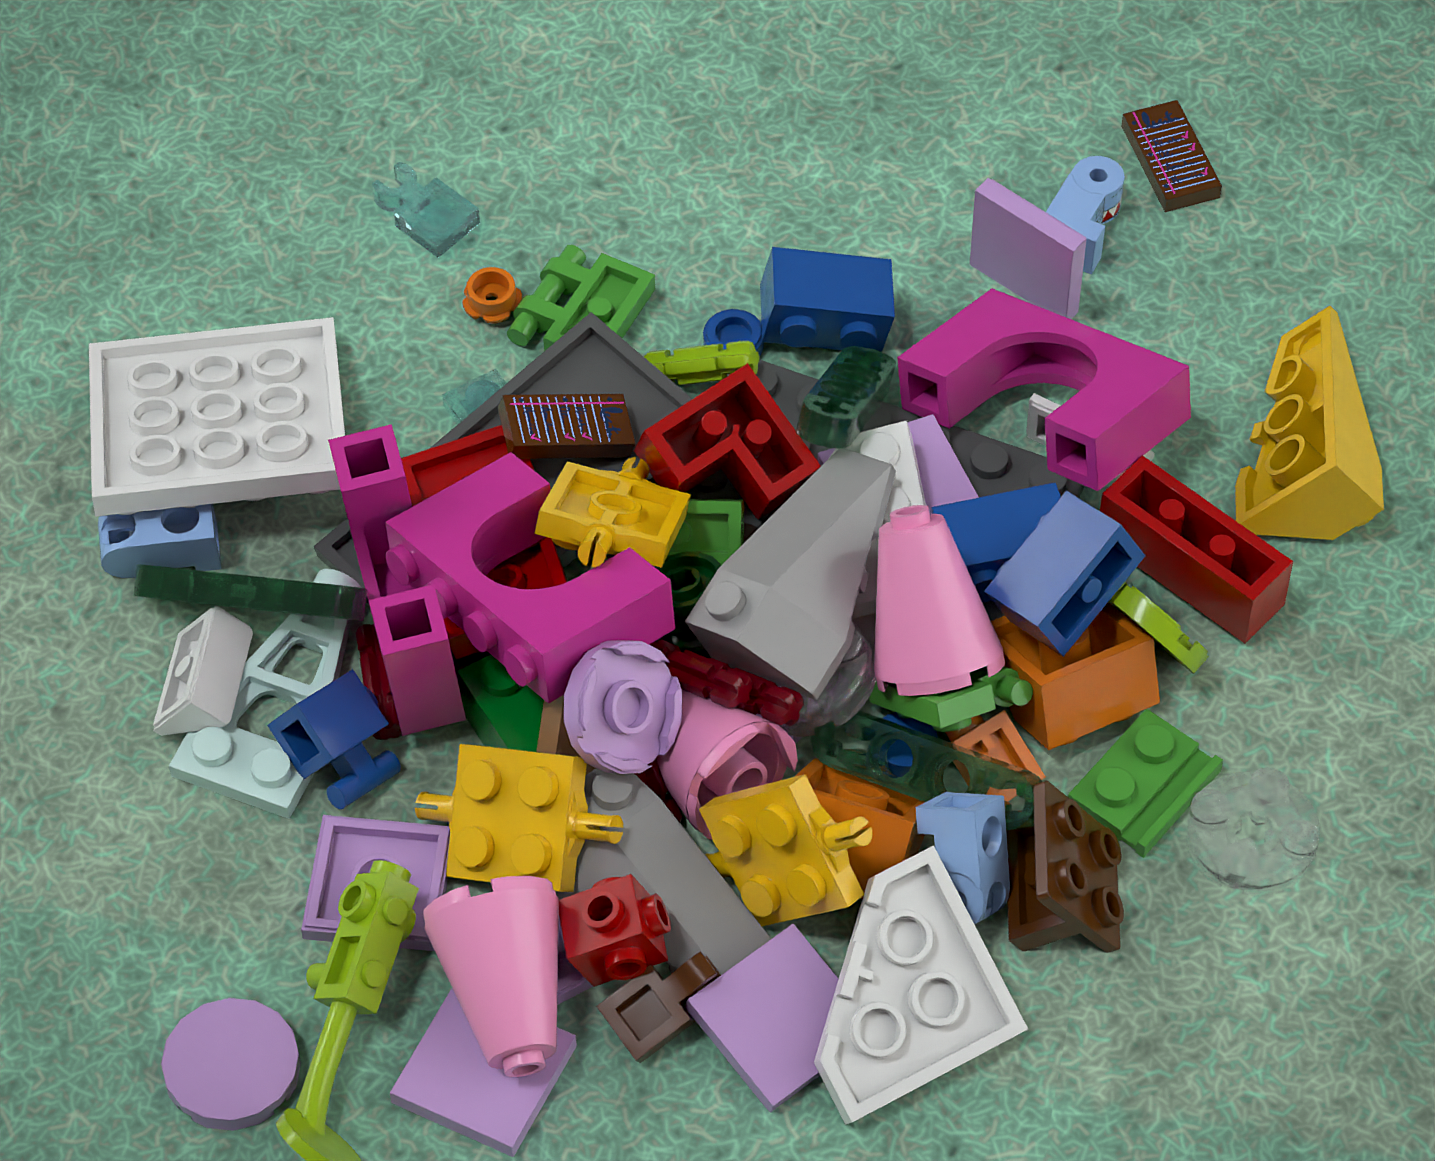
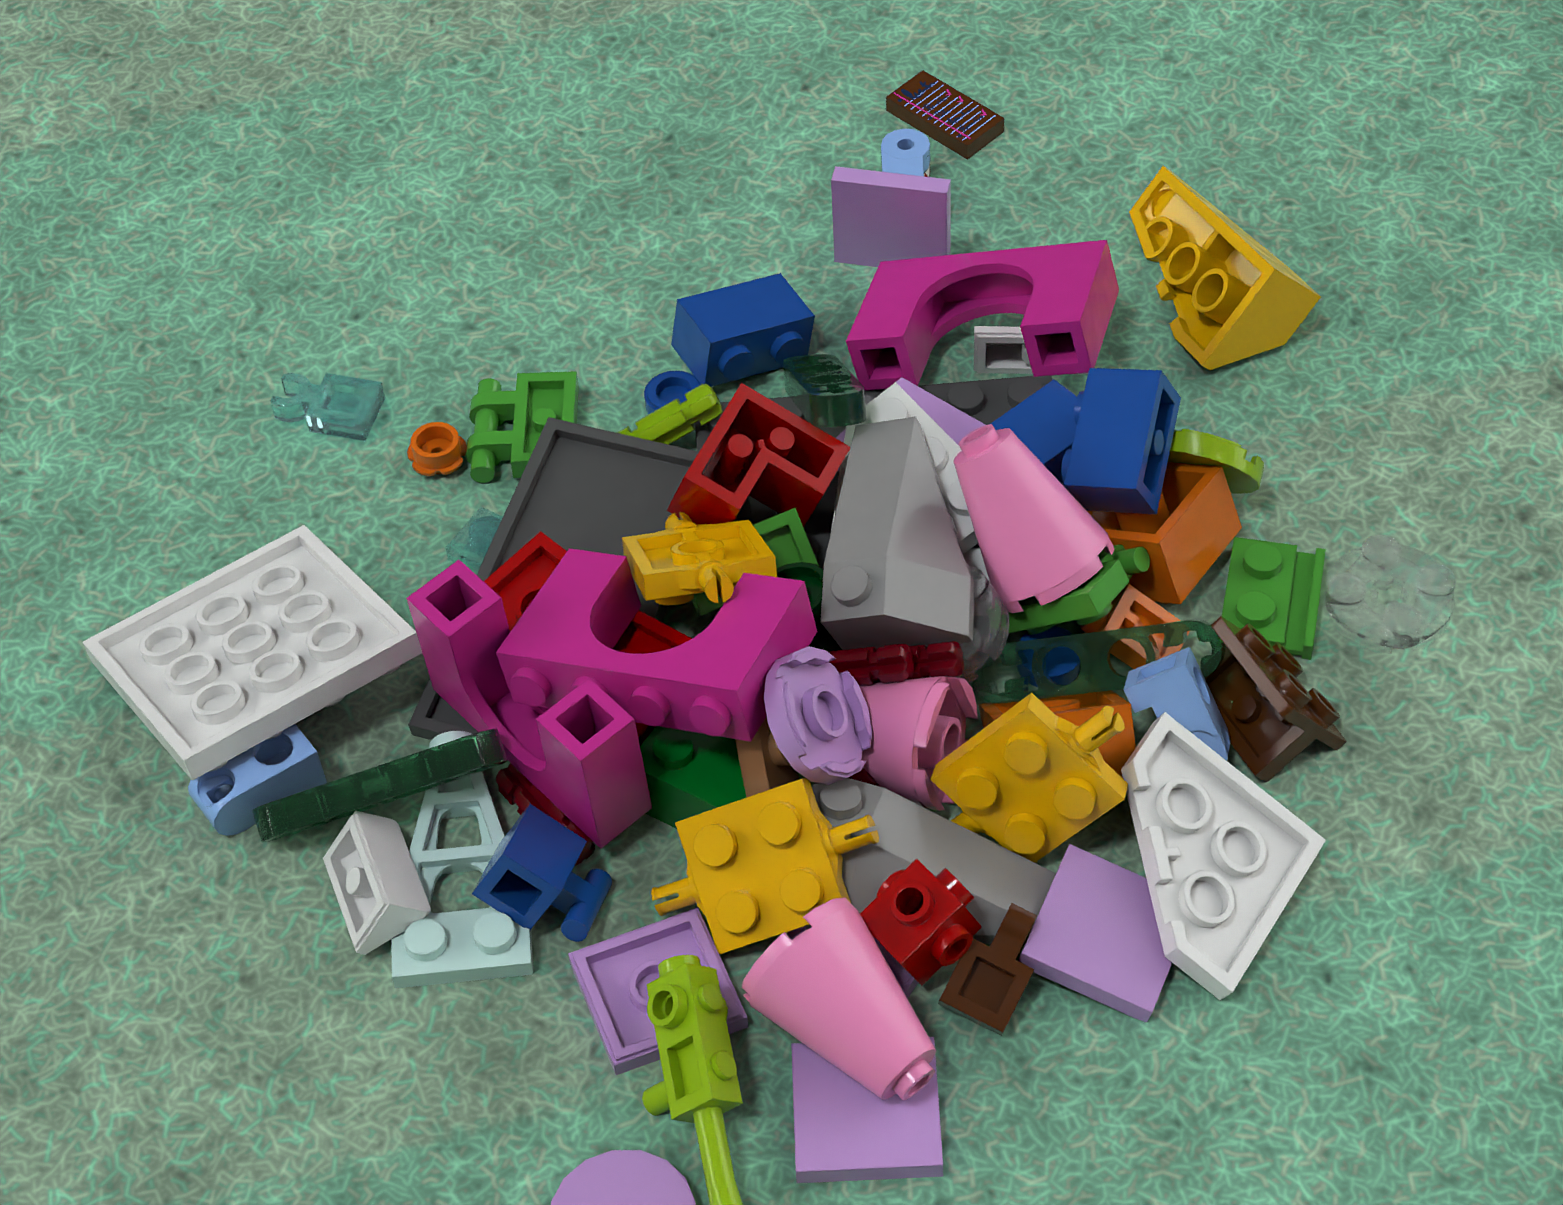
camera: 25 degrees left, 5 degrees down
(566, 425) = (591, 515): reddish brown tile -> none
(1199, 549) = (1219, 389): red brick -> none

